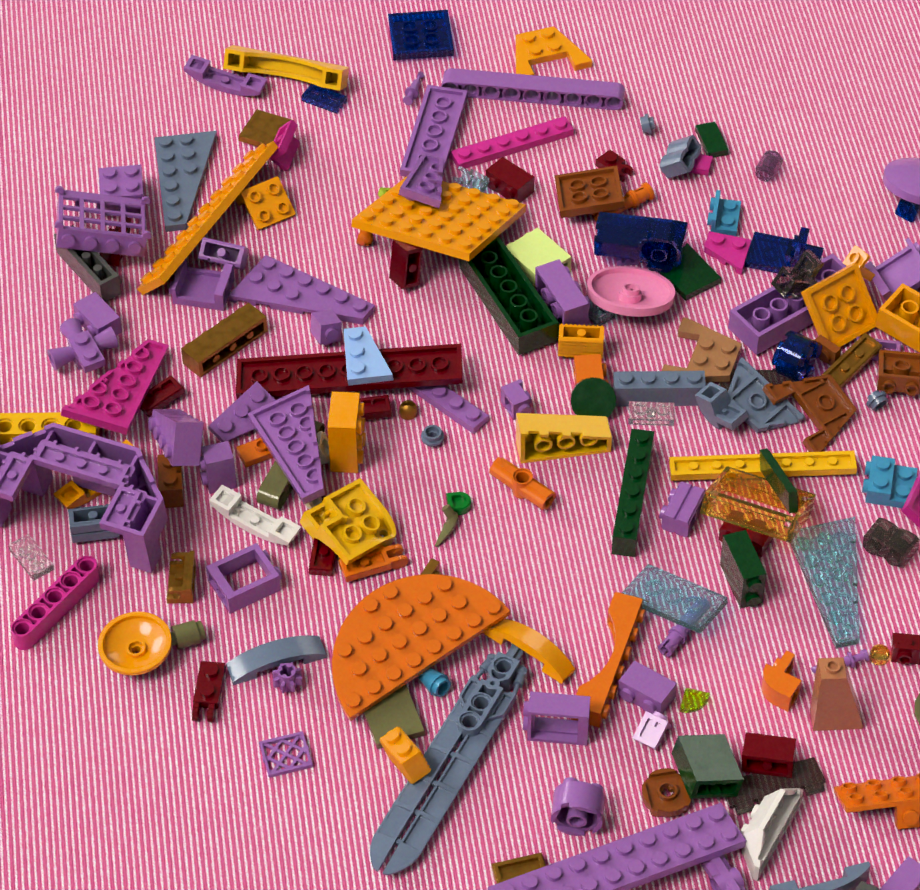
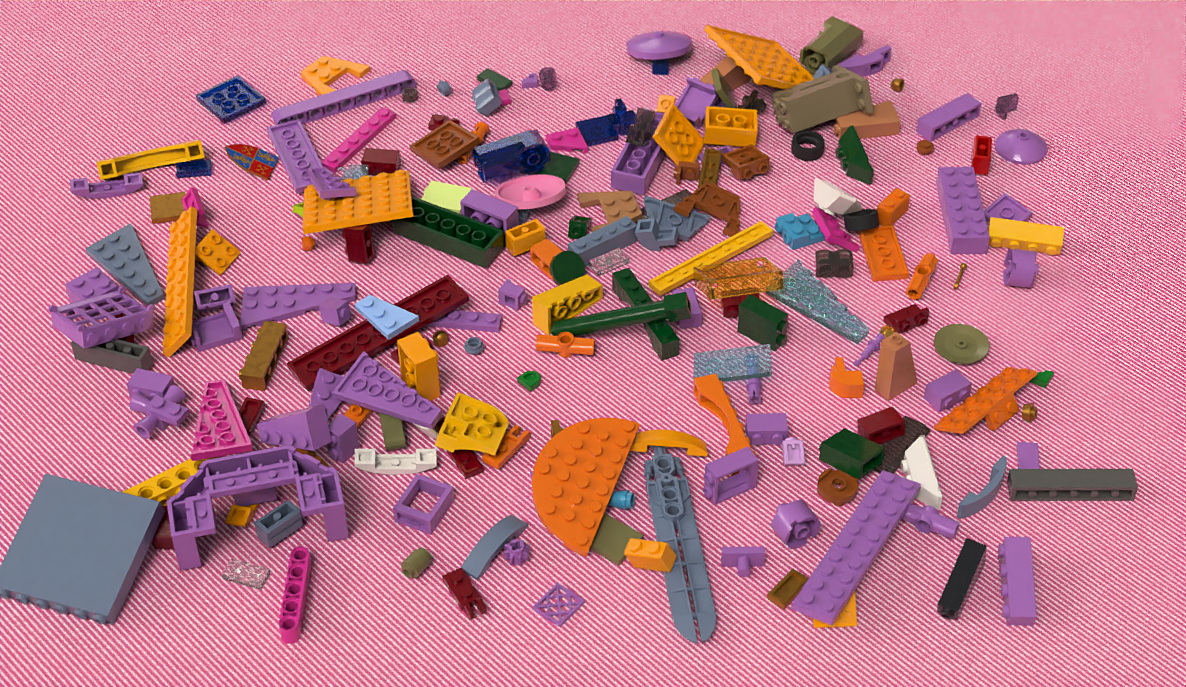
camera: 35 degrees left, 5 degrees down
(131, 634) = (385, 579): light orange dish -> none
(181, 578) = (377, 528): pearl gold hinge -> none
(385, 115) = (252, 159): none -> shield
(412, 91) = (257, 137): medium lavender piece -> none
(449, 525) = (537, 396): olive bar -> none
(498, 812) = (743, 558): none -> medium lavender tile
(605, 115) = (409, 95): none -> clear smoke tile
(644, 500) = (673, 307): none -> dark green brick
(652, 354) = (578, 226): none -> dark green bracket
(693, 700) = (799, 421): clear neon green tile -> none
(724, 215) = (545, 121): dark azure bracket -> none
(749, 160) = (530, 82): none -> medium lavender tile
(778, 481) = (741, 255): dark green tile -> none
(796, 356) = (677, 180): clear blue brick -> none
(877, 400) = (746, 185): sand blue plate -> none
(882, 756) = (947, 390): none -> medium lavender brick

